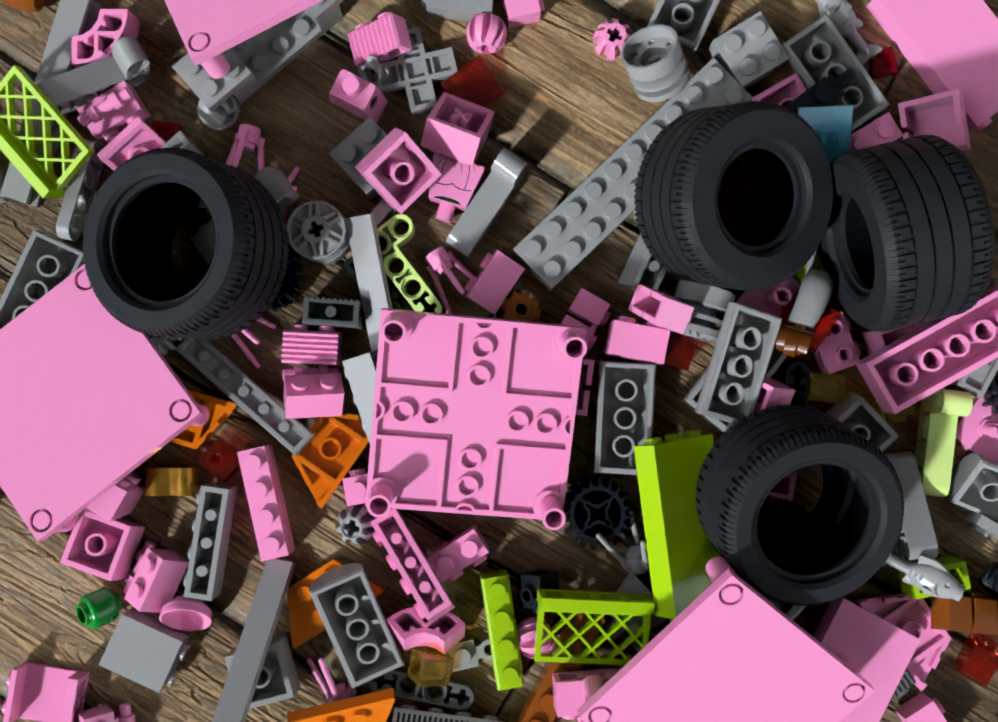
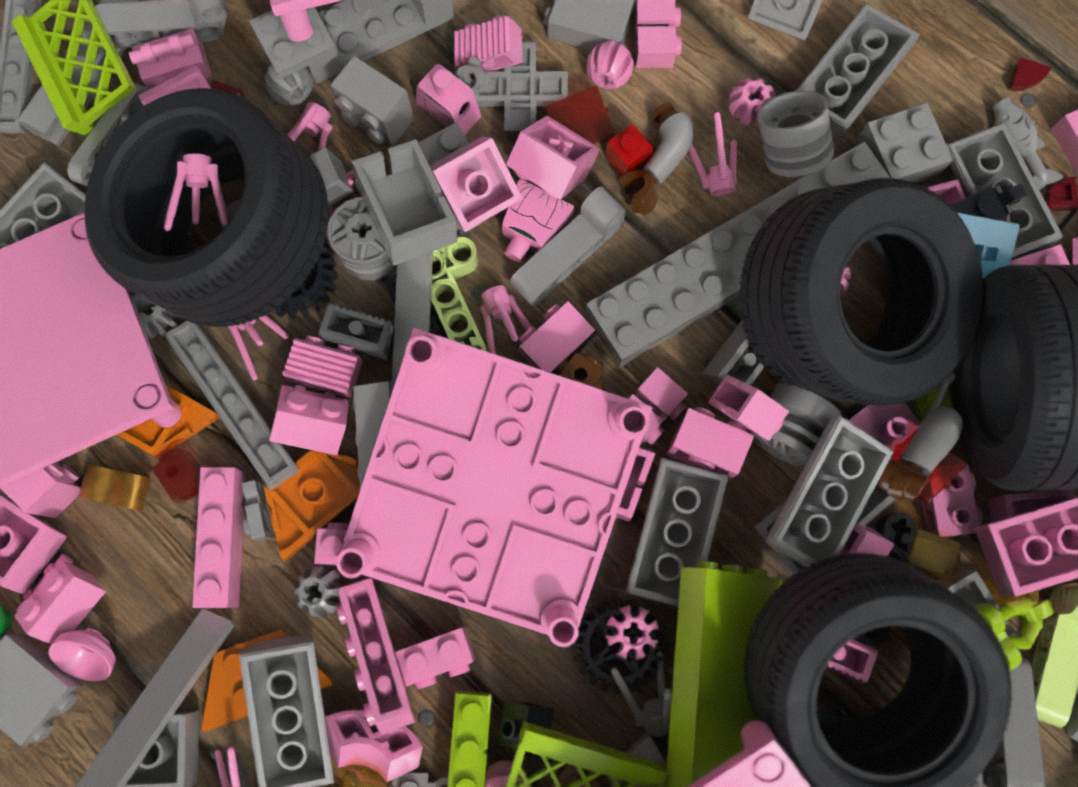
camera: 15 degrees right, 10 degrees down
(169, 218) = (197, 172): none -> bright pink plant
(210, 541) = (138, 570): light grey brick -> none
(292, 481) = (256, 520): none -> light grey plate
(294, 114) = (372, 102): none -> light grey brick
(346, 202) = (405, 202): none -> light grey piece
(519, 108) = (628, 151): none -> red brick
(556, 89) = (675, 142): none -> piece
(601, 111) = (722, 177): none -> bright pink plant
(613, 508) = (638, 641): none -> bright pink piece
(679, 352) = (757, 470): clear red brick -> none
(880, 436) = (1029, 614): none -> lime piece

